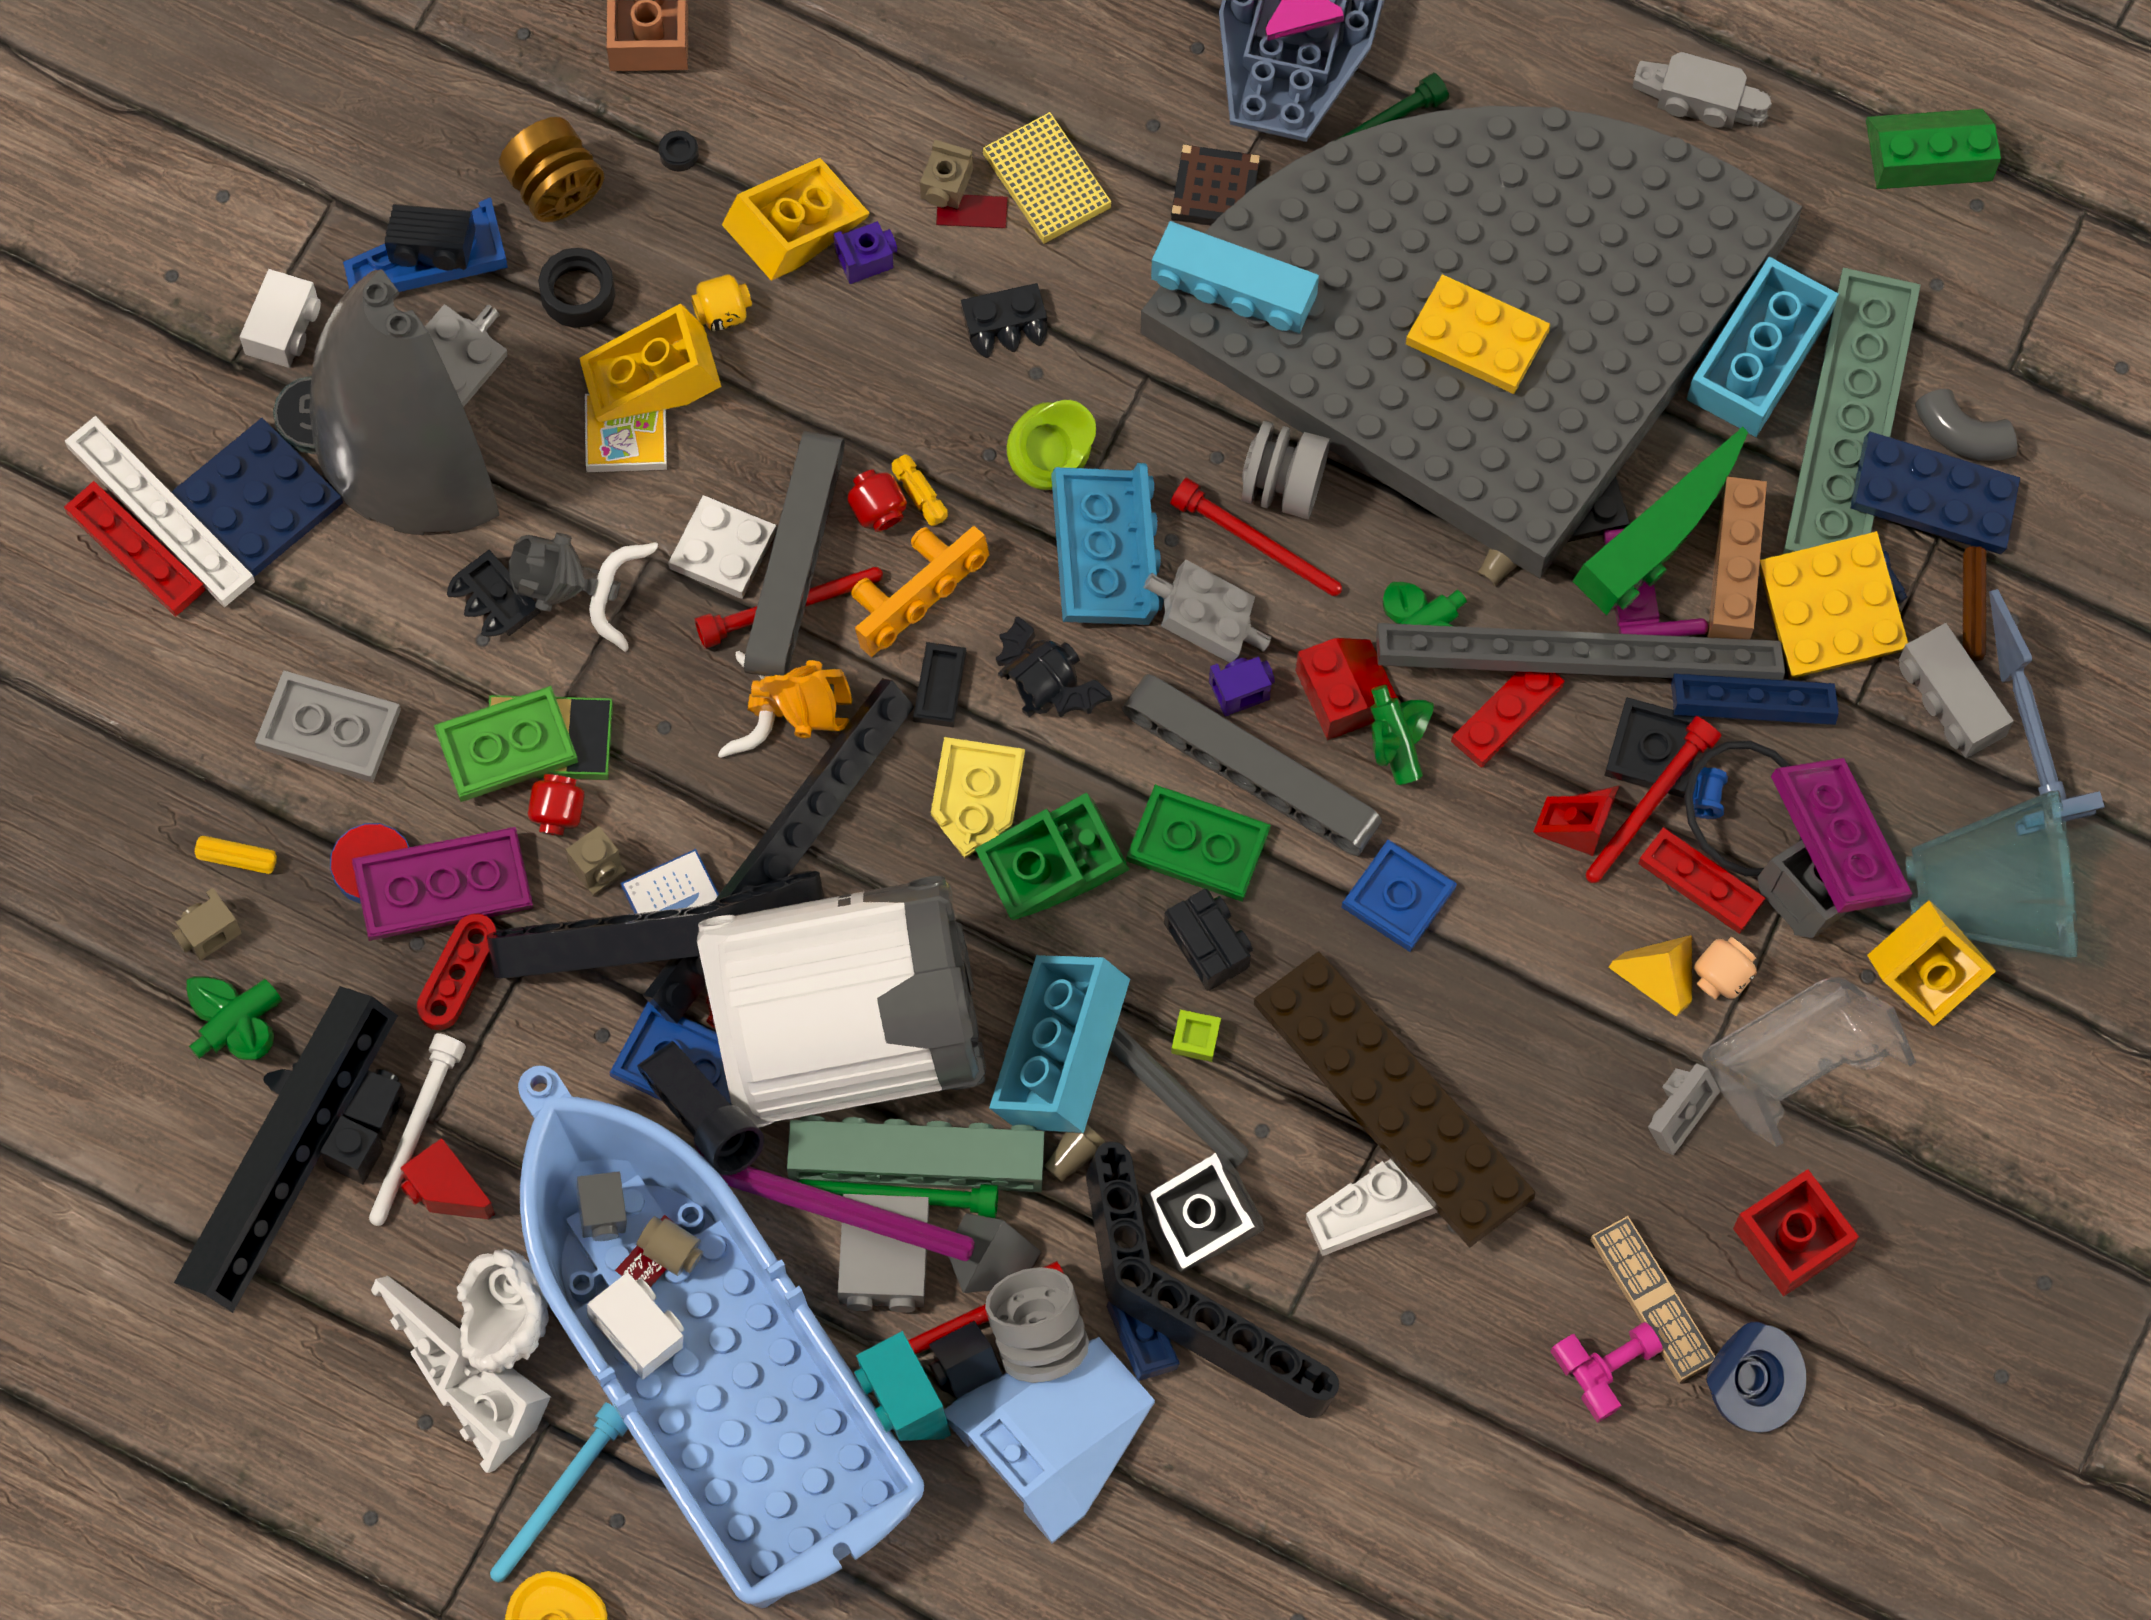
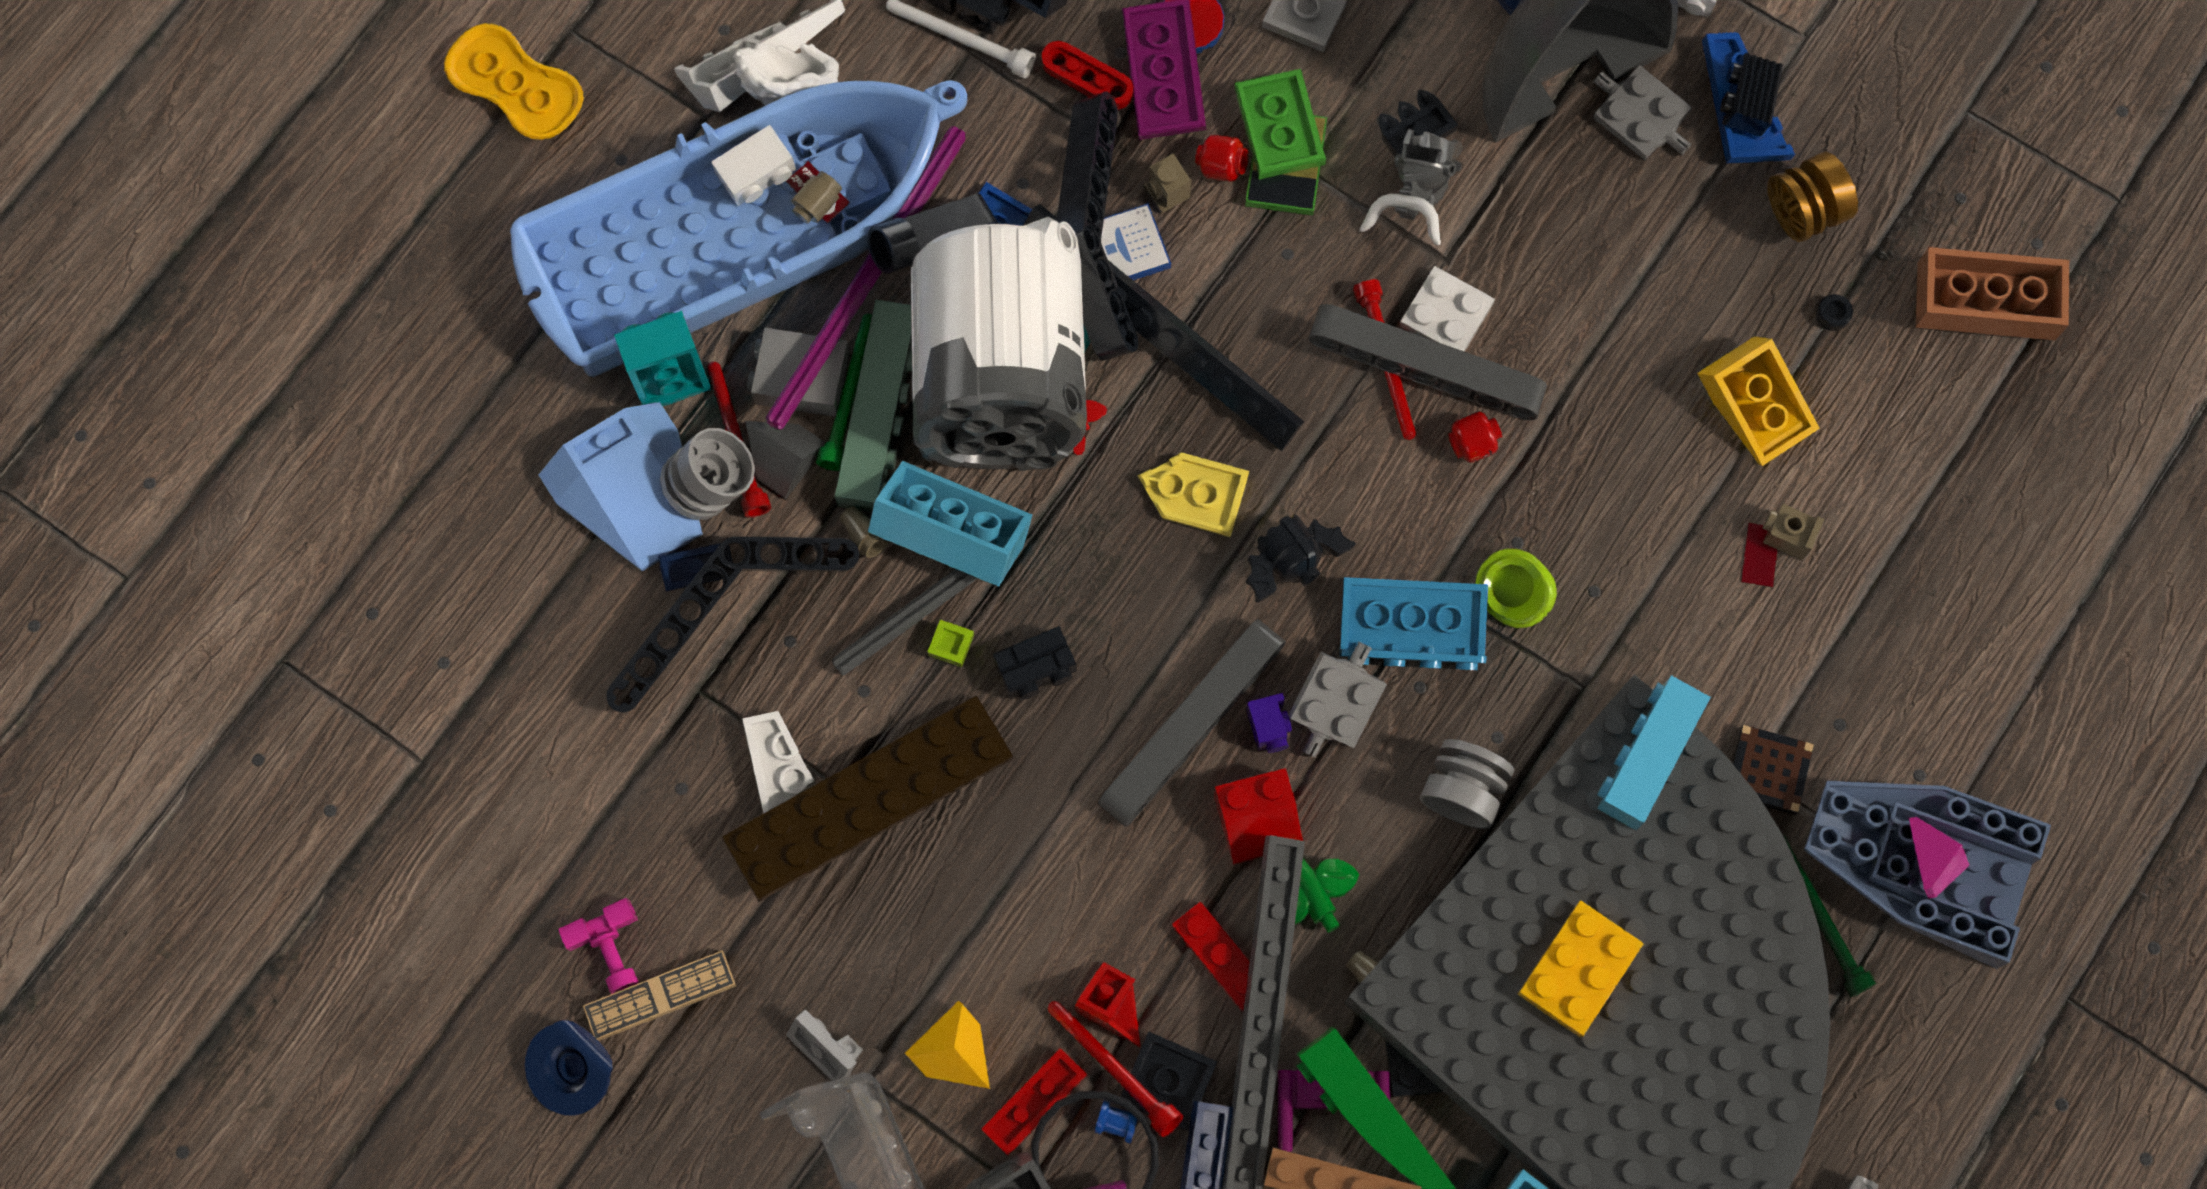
camera: 100 degrees right, 5 degrees up
(444, 1184) = (909, 51): red slope -> none
(574, 260) = (1710, 192): black tyre -> none
(601, 1206) = (855, 148): dark grey brick -> none
(607, 1427) = (632, 104): medium azure piece -> none
(625, 442) = (1562, 245): tile -> none
(651, 367) = (1617, 266): yellow slope -> none
(721, 302) = (1678, 329): yellow head -> none
(800, 696) = (1285, 349): light orange helmet -> none
(863, 262) = (1715, 465): dark purple brick -> none
(910, 603) = (1392, 476): light orange plate -> none
(919, 490) = (1485, 477): yellow axle -> none
(939, 684) = (1300, 475): black tile -> none
(964, 1360) = (694, 415): black brick -> none
(1005, 316) = (1651, 569): black plate -> none
(1046, 178) = (1788, 621): light yellow tile -> none
(1052, 857) = (1127, 546): green slope -> none
(1191, 498) = (1454, 704): red piece -> none
(1198, 843) = (1128, 671): green tile -> none
(1200, 1213) = (791, 629): dark grey slope -> none
(1396, 733) = (1201, 846): green plant -> none
(1399, 895) = (1058, 834): blue tile -> none
(1725, 968) = (946, 1108): light nougat head -> none
(1795, 1232) = (689, 1124): red brick -> none

